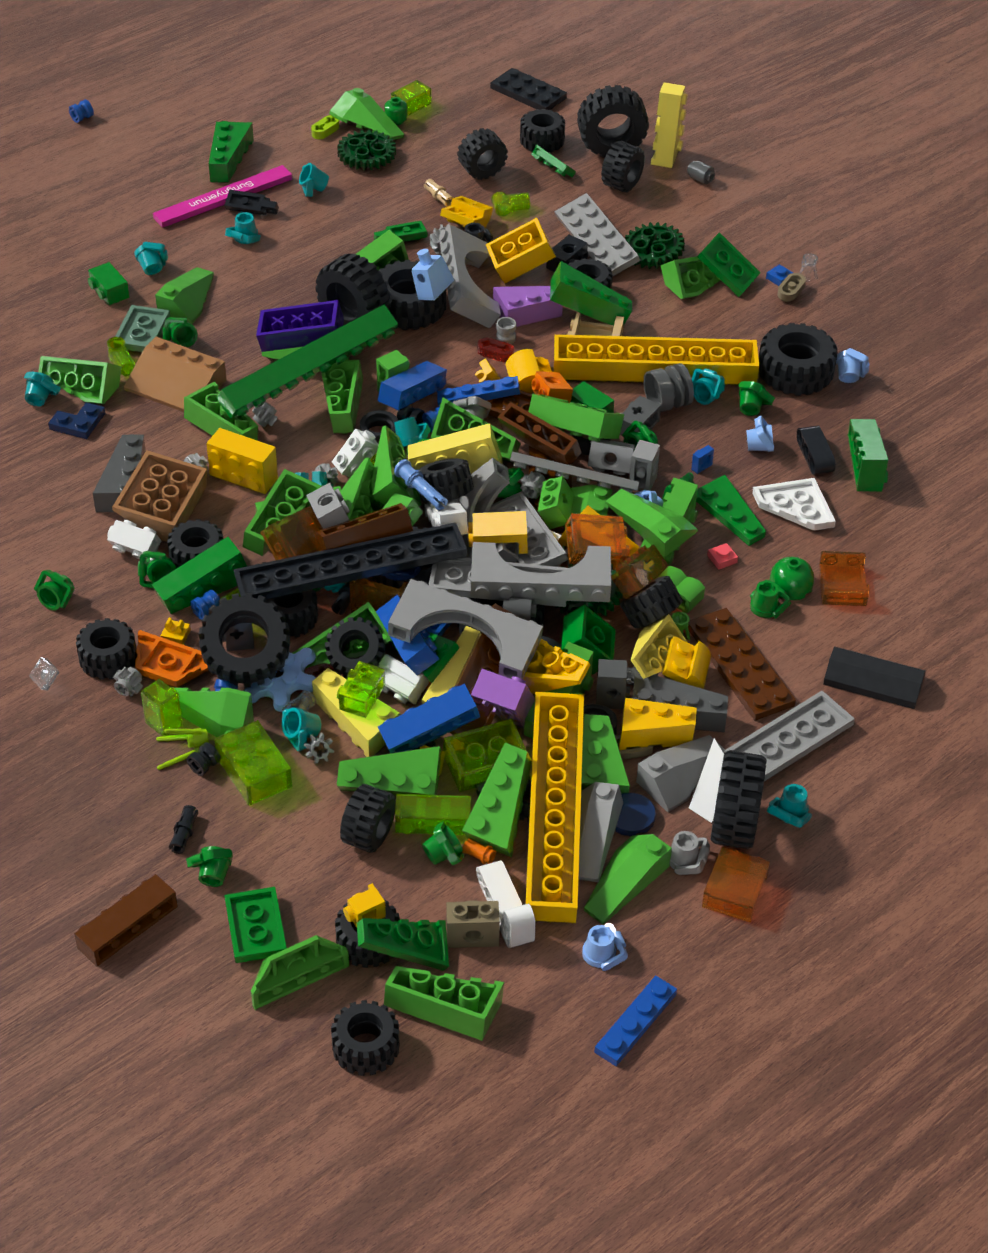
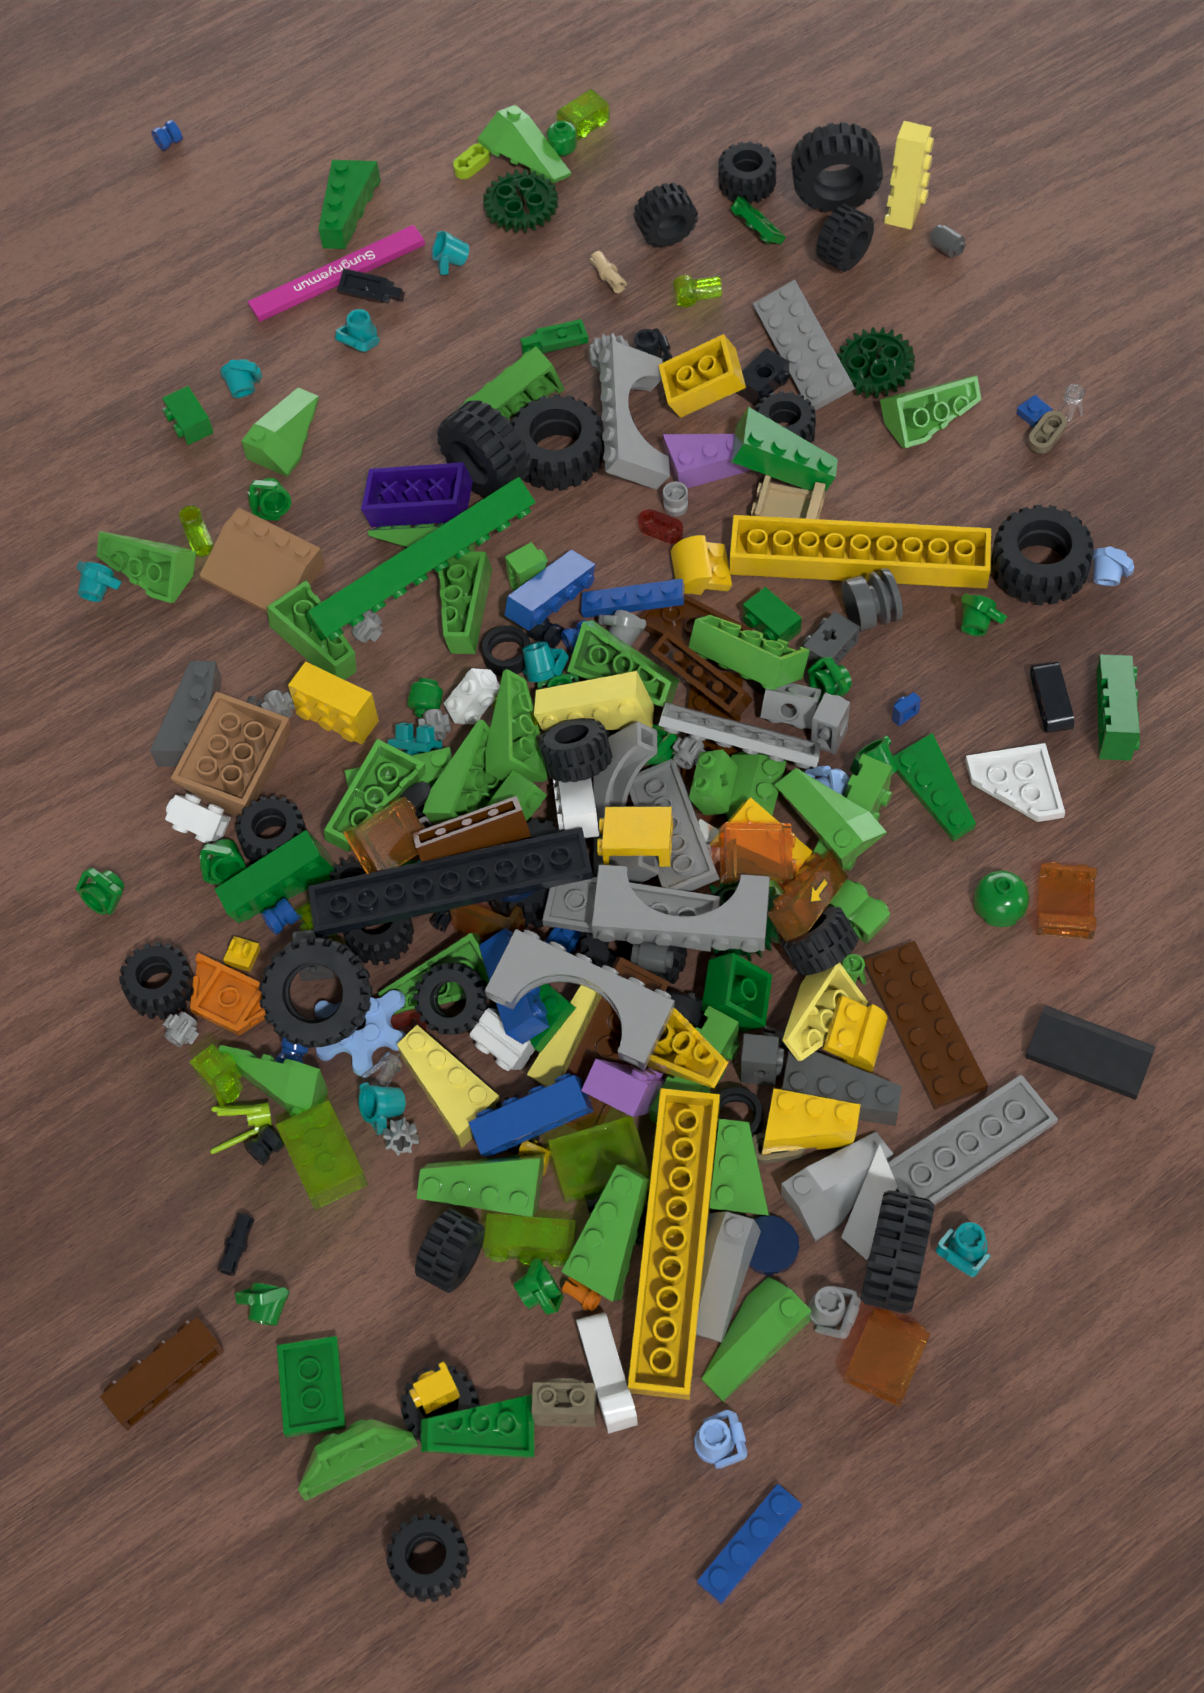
camera: 10 degrees right, 15 degrees up
(44, 673) = (83, 1013): clear plate -> none
(80, 424) = (144, 633): dark blue plate -> none
(142, 326) = (224, 485): sand green plate -> none
(313, 456) = (424, 696): none -> green head
(328, 506) = (428, 797): light grey brick -> none
(361, 689) = (452, 1067): clear neon green brick -> none
(414, 479) = (536, 757): medium blue pin -> none
(430, 275) = (581, 431): light blue torso -> none
(444, 1000) = (526, 1511): bright green wedge -> none
(467, 211) = (640, 307): yellow brick -> none
(487, 372) = (649, 565): yellow tile -> none
(528, 90) = (736, 99): black plate -> none
(551, 385) = (724, 597): orange brick -> none
(707, 388) = (923, 597): teal piece -> none
(722, 556) = (918, 859): coral plate -> none
(728, 264) = (968, 399): green plate -> none
(761, 437) = (983, 677): light blue piece -> none
(766, 600) = (965, 931): green piece -> none

